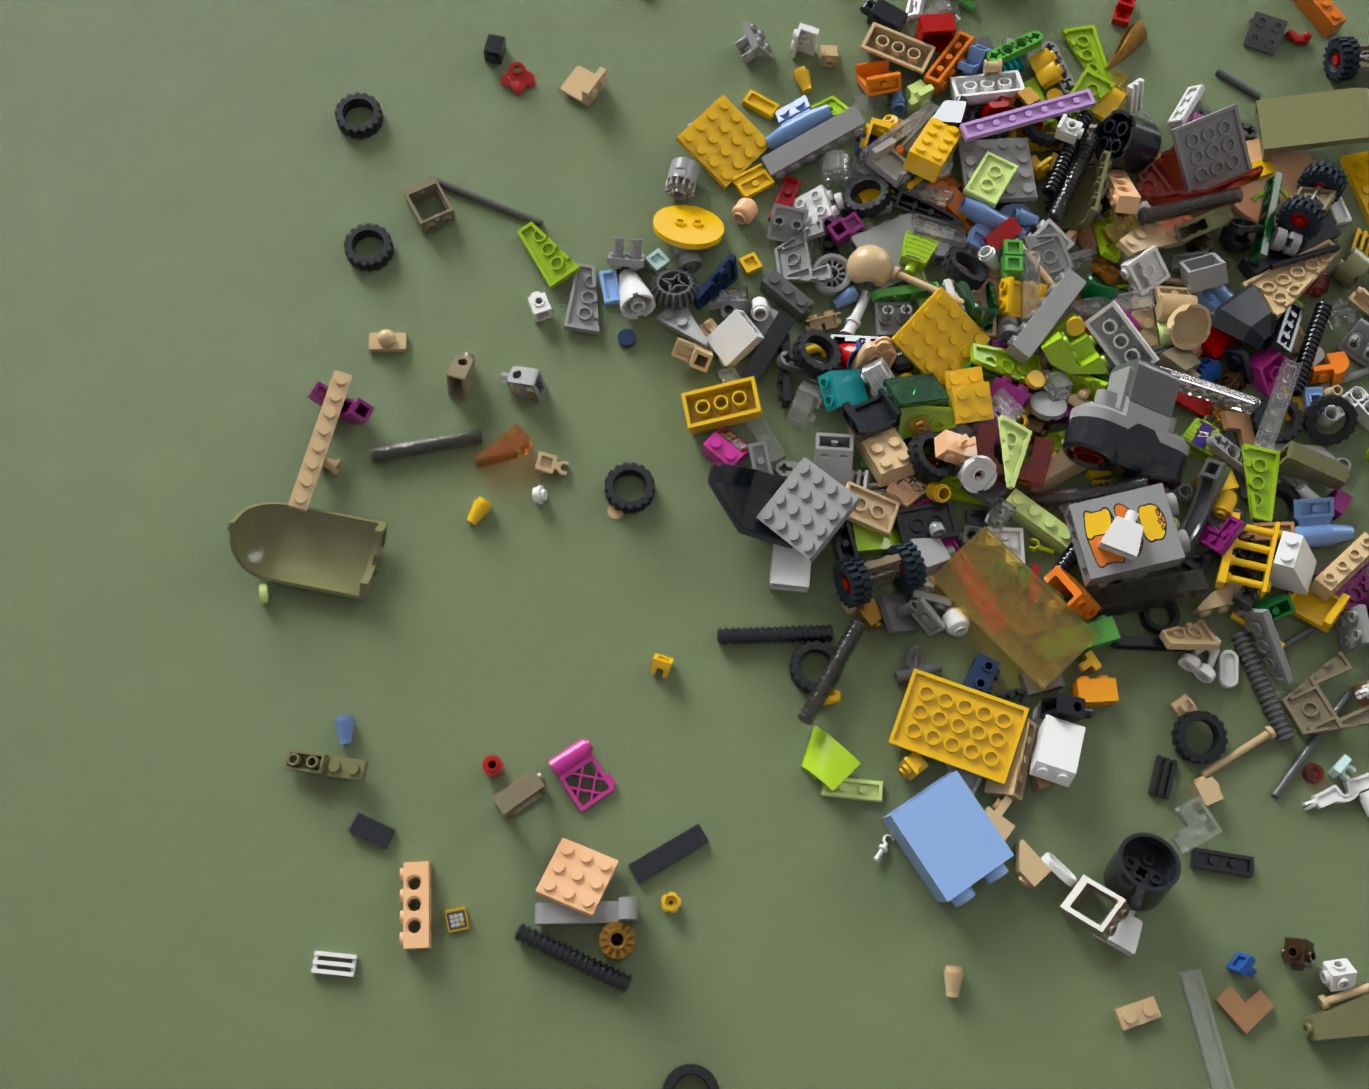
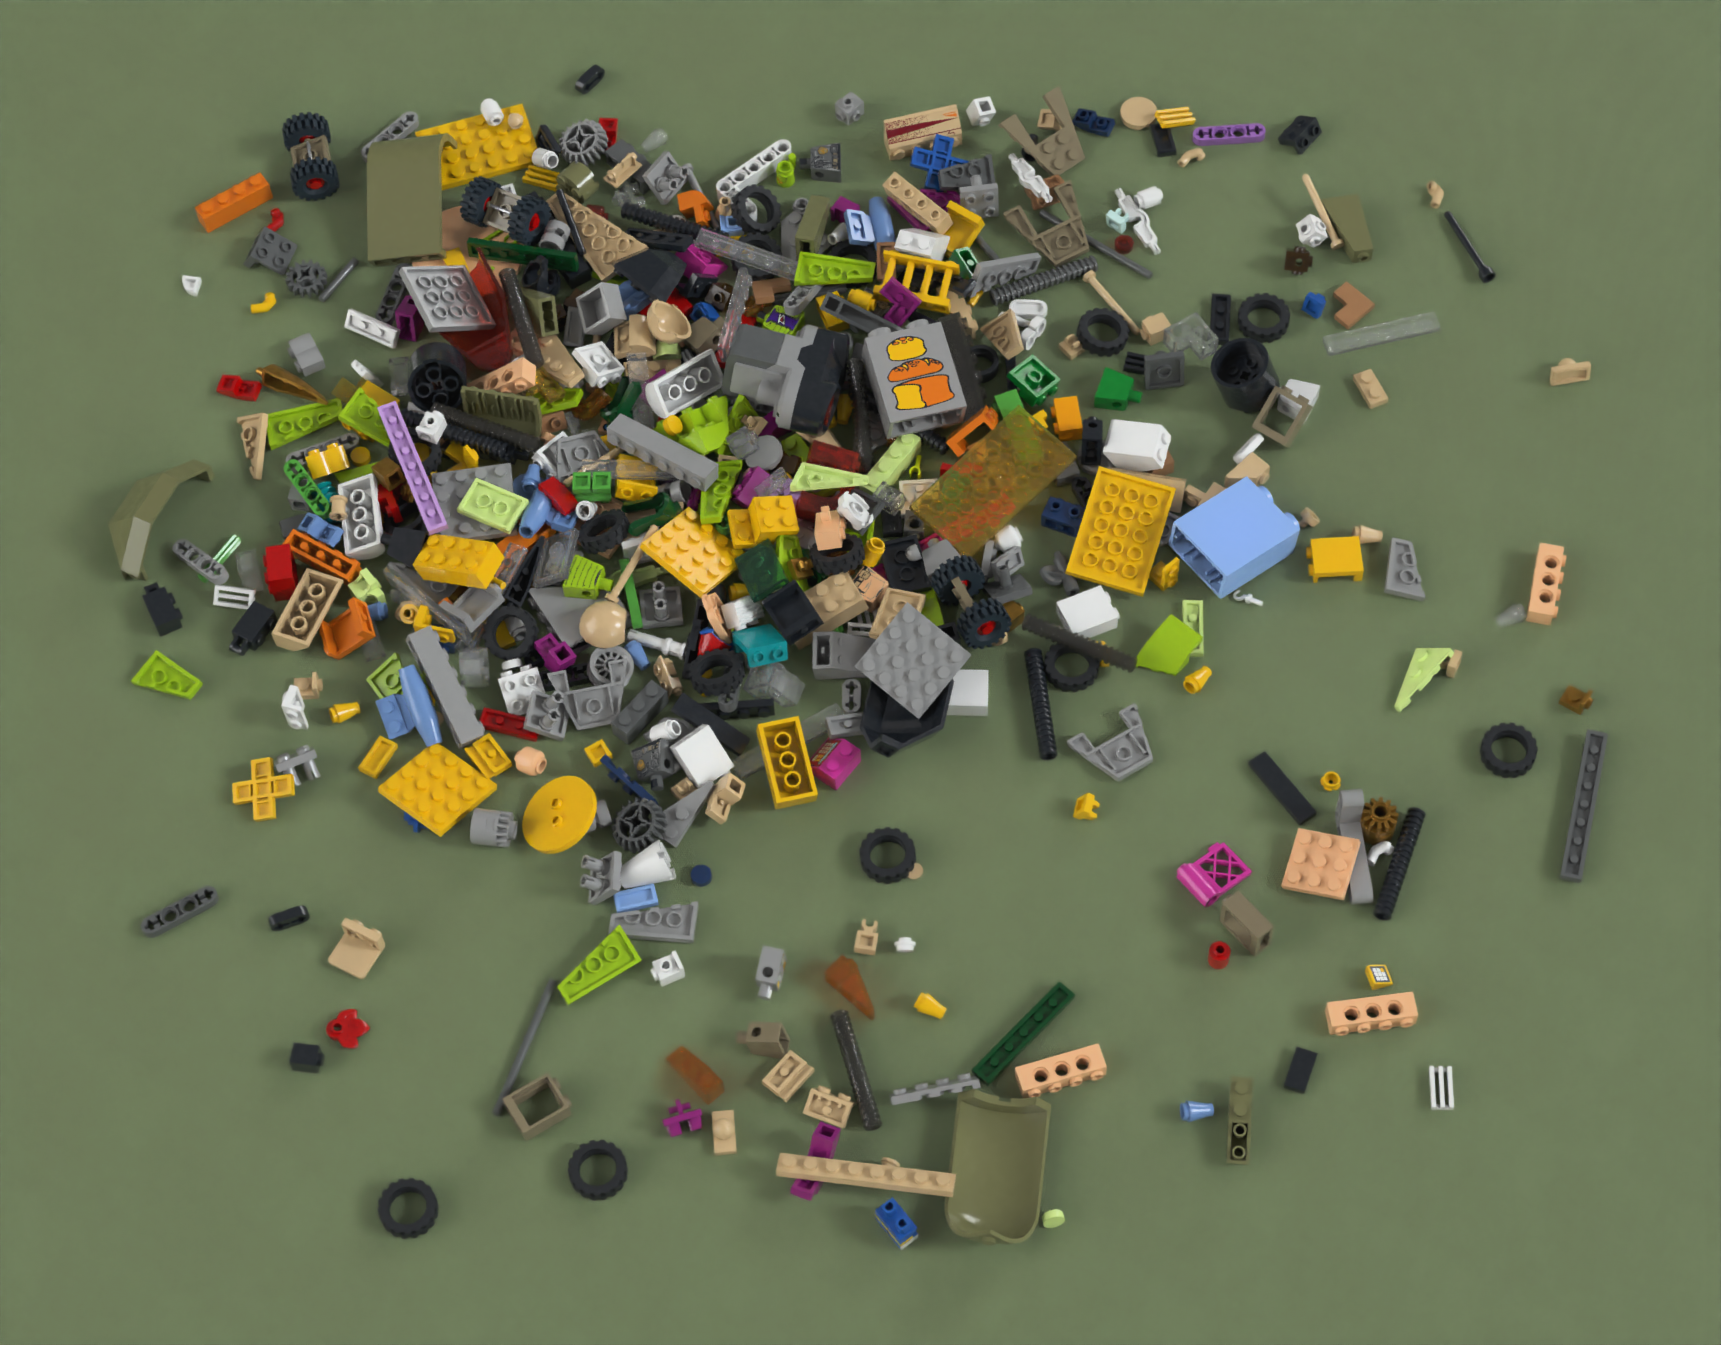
camera: 85 degrees left, 10 degrees down
(274, 464) = (896, 1223): none -> blue hips
(396, 513) = (902, 1095): none -> light grey wing
(397, 422) = (828, 1106): none -> tan bracket
(405, 309) = (693, 1118): none -> magenta hips
(409, 642) = (1068, 1062): none -> light nougat brick
(429, 392) = (788, 1076): none -> tan plate
(440, 322) = (696, 1074): none -> clear orange slope
(442, 587) = (1023, 1033): none -> dark green plate
(591, 939) = (1382, 847): none -> white arm
(618, 39) = (288, 918): none -> black beam
(657, 260) = (602, 846): light aqua tile -> none
(717, 706) = (1121, 754): none -> light grey wing
(732, 20) = (263, 789): none -> yellow plate
(790, 1015) = (1420, 671): none -> yellowish green wing
(792, 785) = (1196, 680): none -> yellow cone
(794, 1049) = (1452, 663): none -> tan tile
(869, 687) = (1088, 612): none -> white brick
(905, 1012) = (1402, 573): none -> light grey wing
(924, 942) = (1335, 558): none -> yellow panel
(974, 922) = (1309, 517): none -> tan tile
(1035, 379) = (736, 463): yellow tile -> none
(1066, 19) = (254, 439): none -> tan wing
(1123, 536) = (924, 371): white torso -> none
(1128, 742) = (1116, 391): none -> green torso
(1137, 661) = (1034, 380): none -> green plate
(1152, 792) = (1164, 370): none -> dark grey tile
(1157, 57) = (306, 354): none -> light grey brick
(1210, 31) = (266, 305): none -> yellow arm
(1237, 57) = (306, 278): none -> dark grey gear
(1242, 898) = (1269, 302): none -> black tyre

